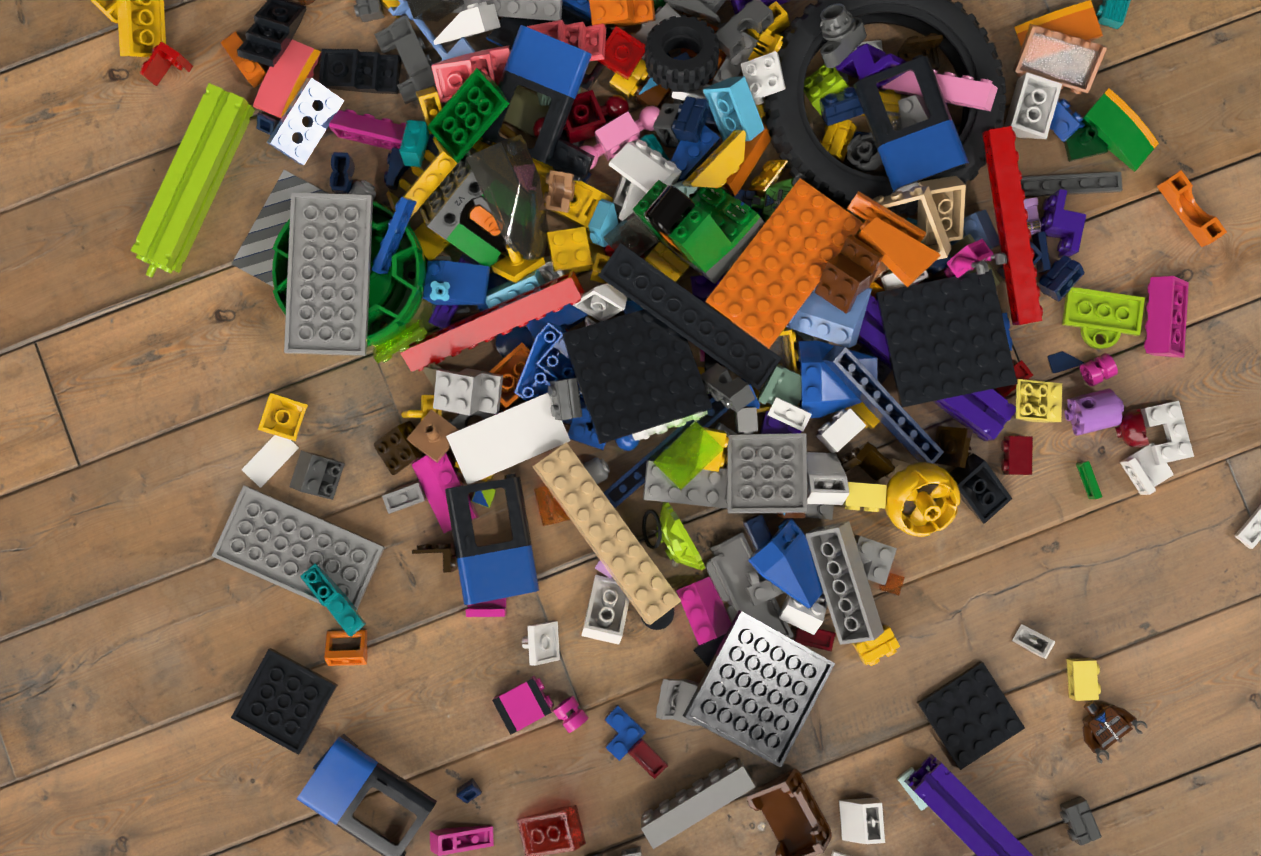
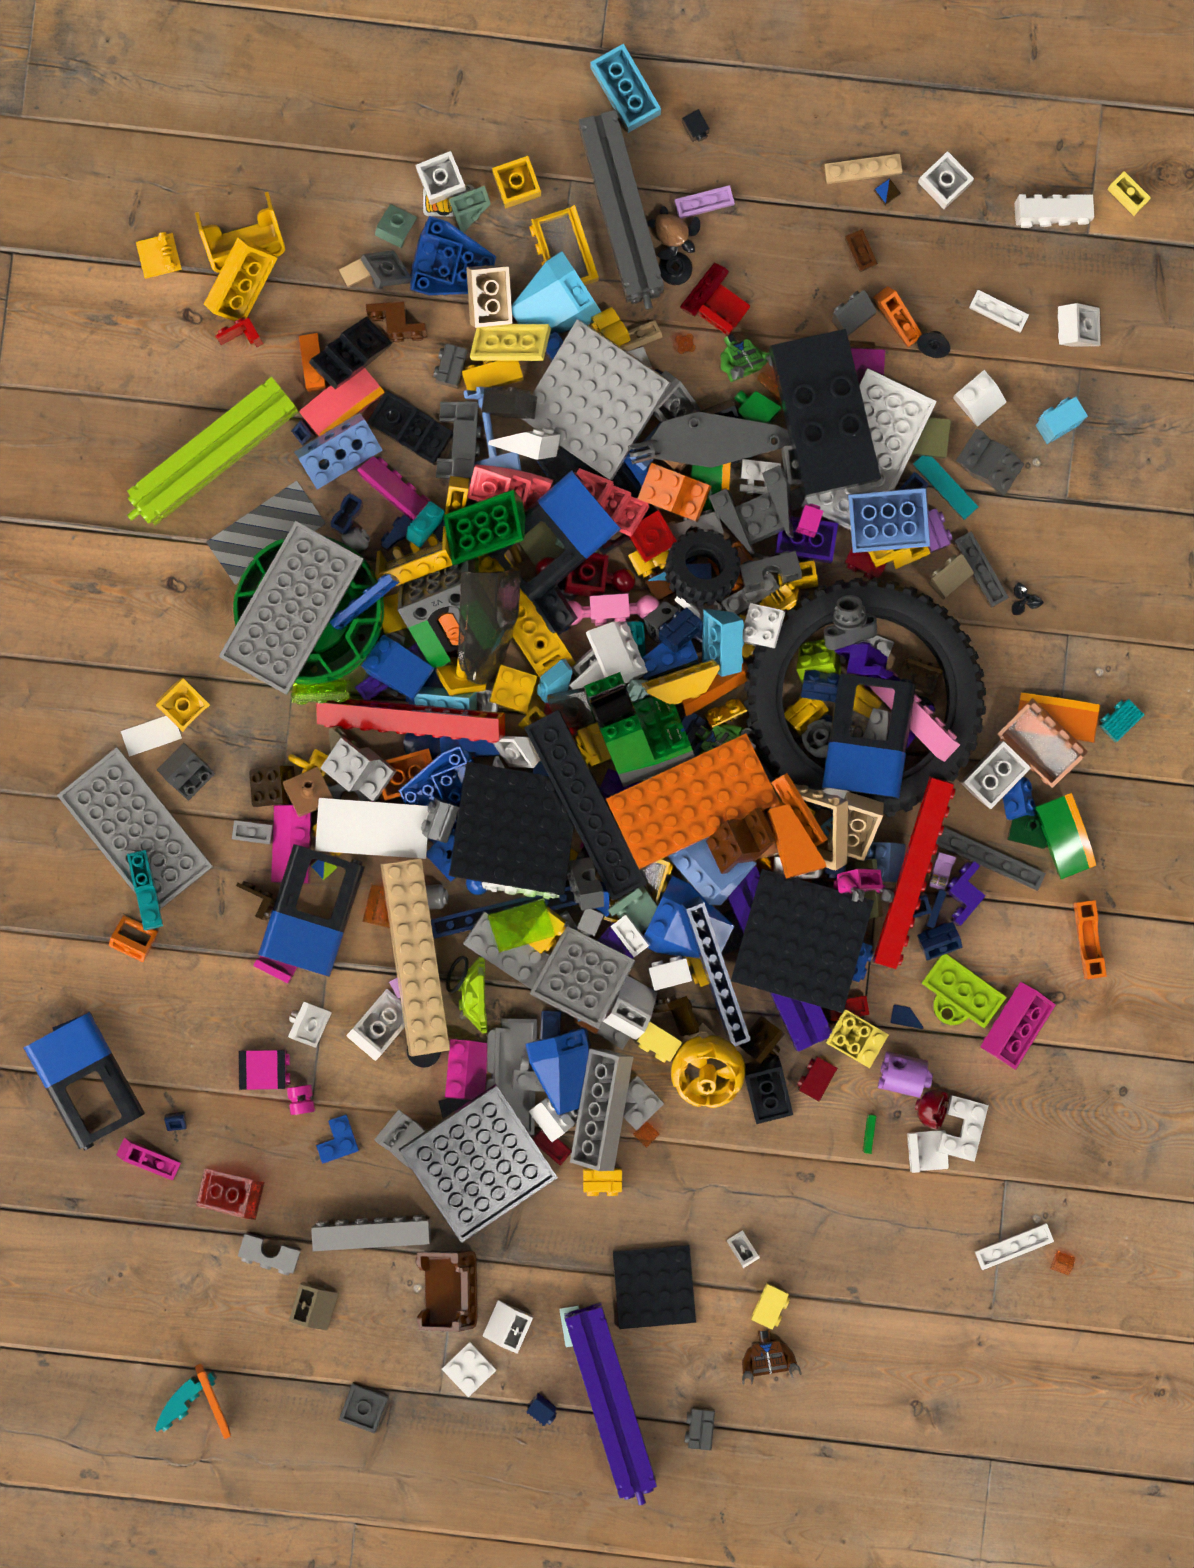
camera: 25 degrees right, 0 degrees up
(60, 34) = (158, 255): none -> yellow hinge
(284, 701) = (54, 957): black plate -> none
(443, 295) = (374, 669): medium azure plate -> none
(560, 191) = (531, 634): medium nougat cylinder -> none
(647, 758) = (348, 1174): dark red tile -> none
(1101, 368) = (930, 1040): dark pink wheel -> none

